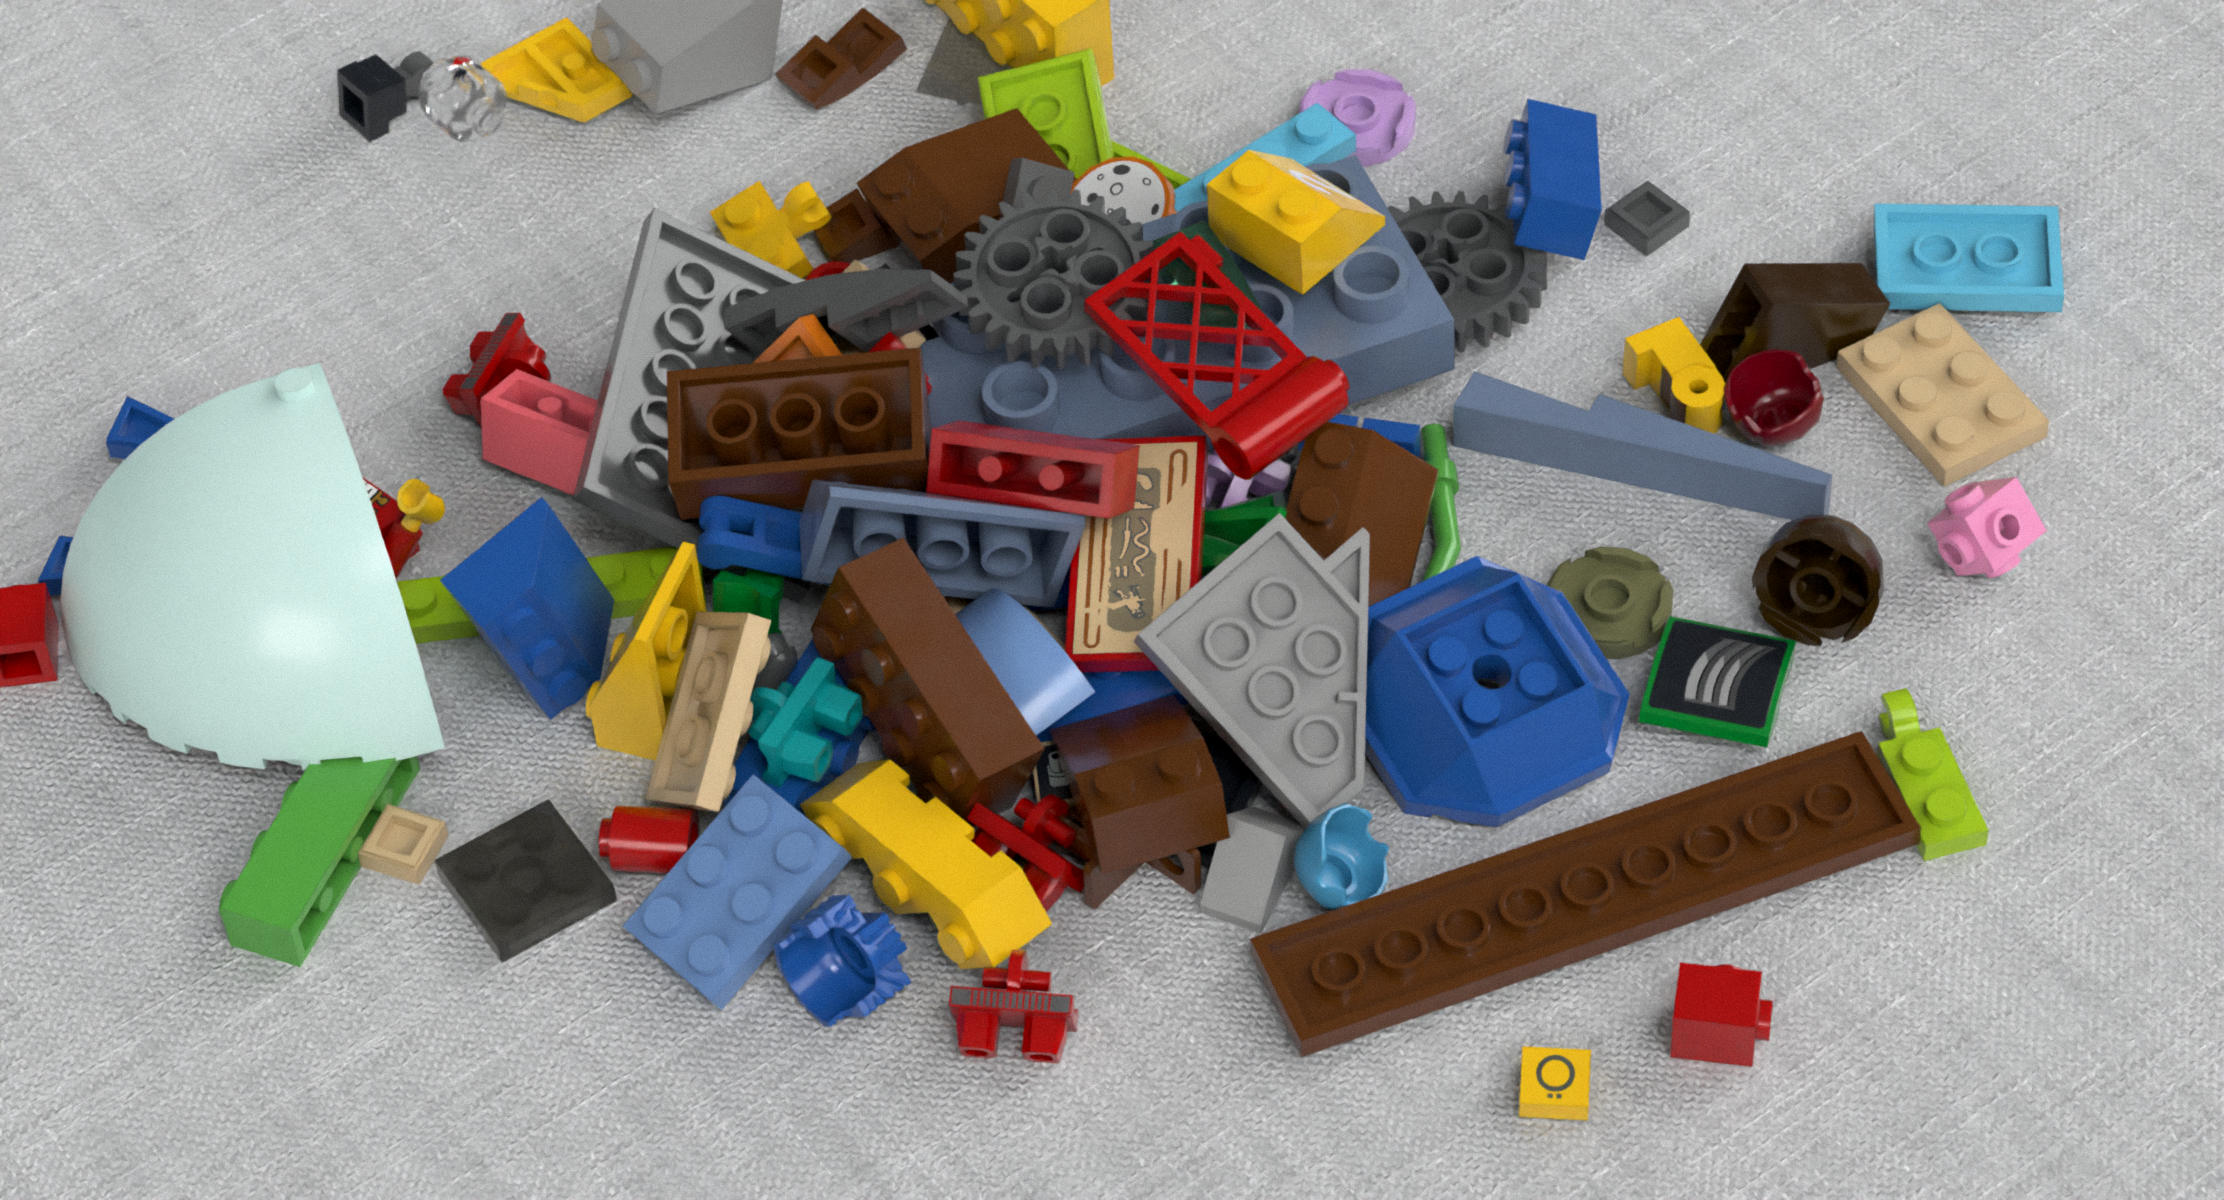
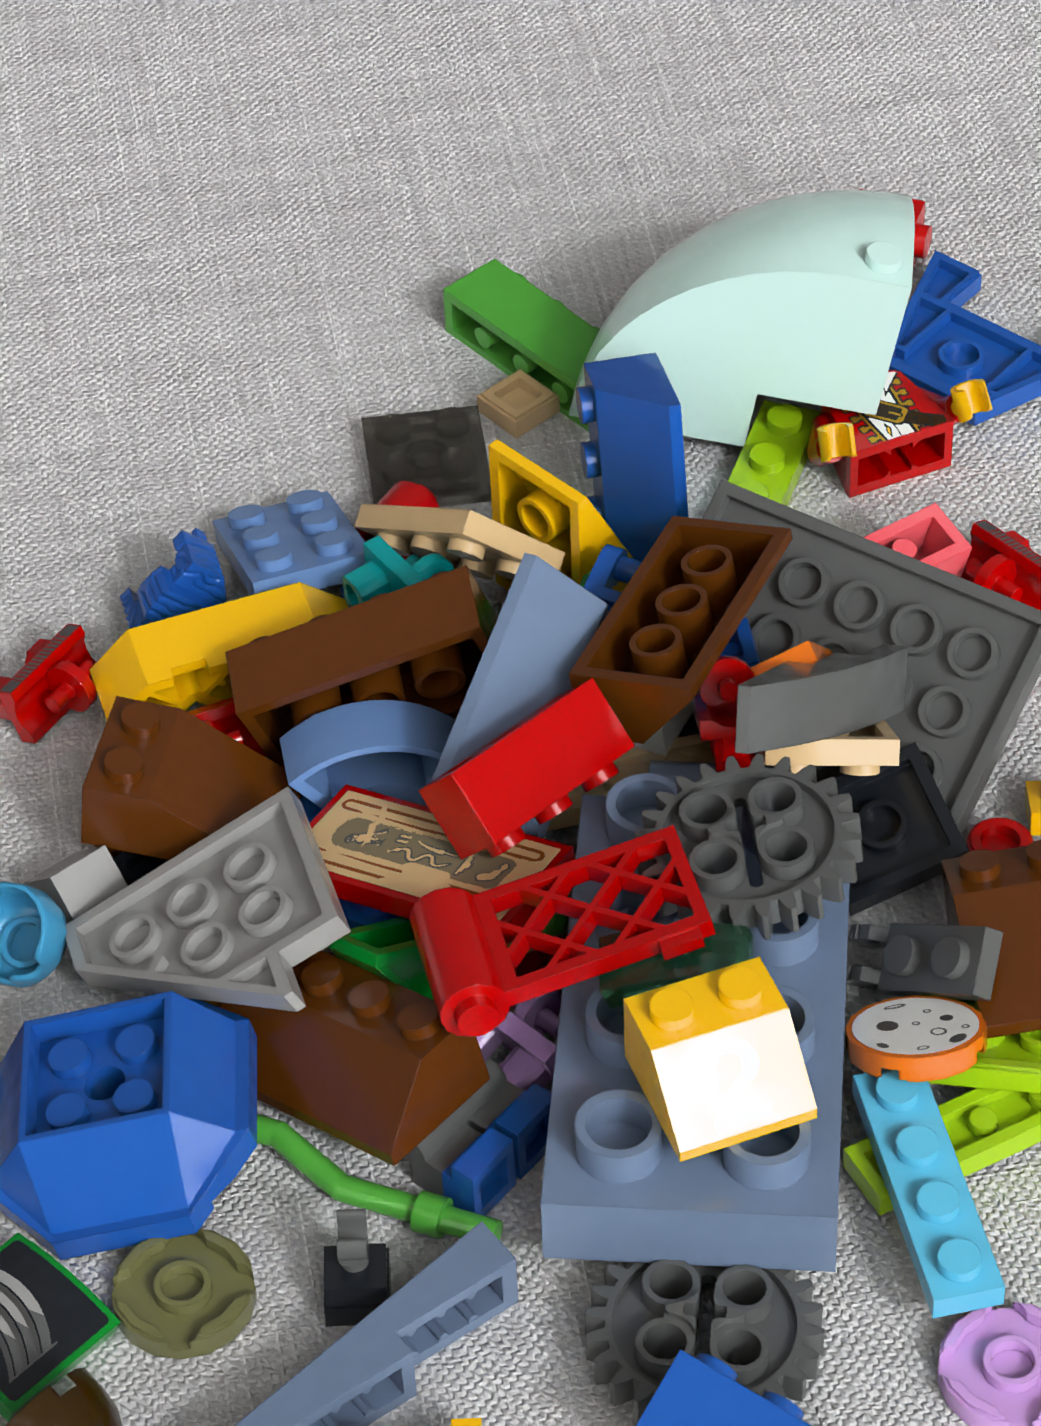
camera: 115 degrees right, 5 degrees down
(1534, 487) = (354, 1272): none -> black piece

